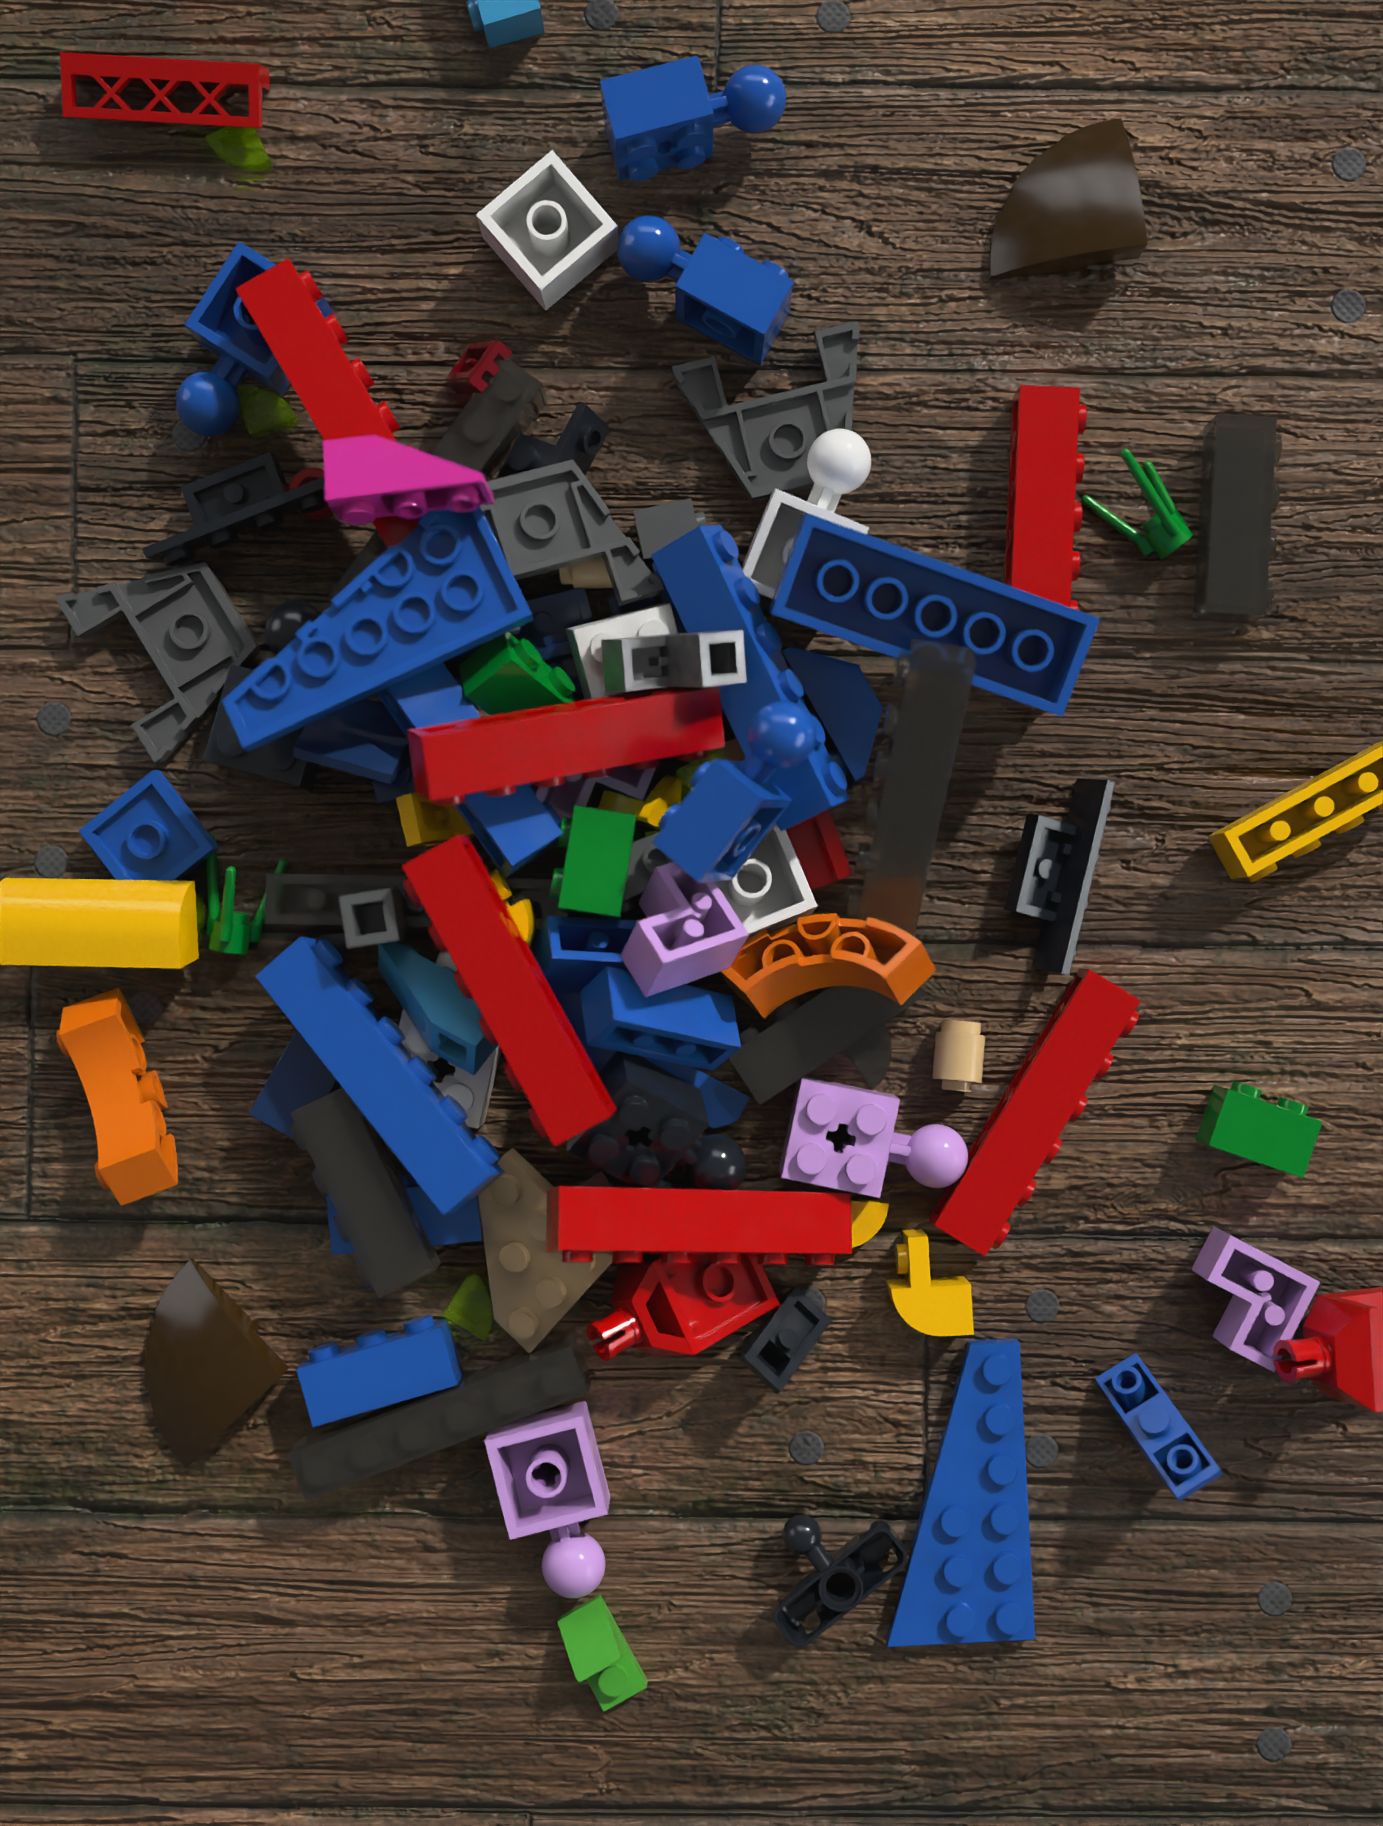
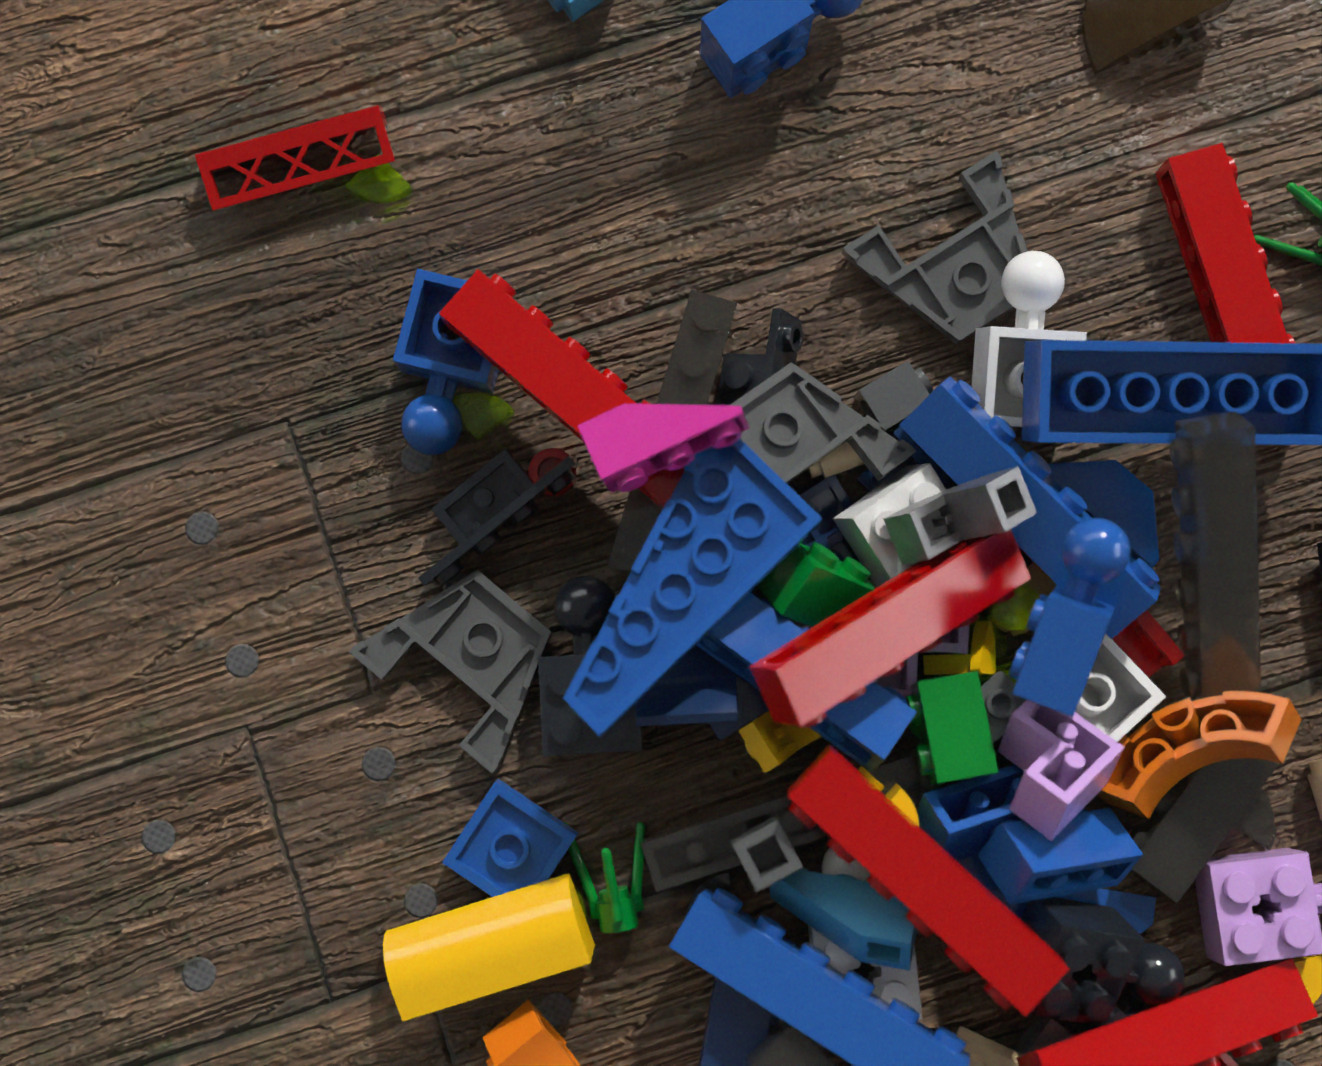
camera: 15 degrees left, 5 degrees down
(467, 373) = (670, 317): dark red tile -> none
(548, 230) = (690, 164): white brick -> none
(716, 287) = (869, 166): blue brick -> none

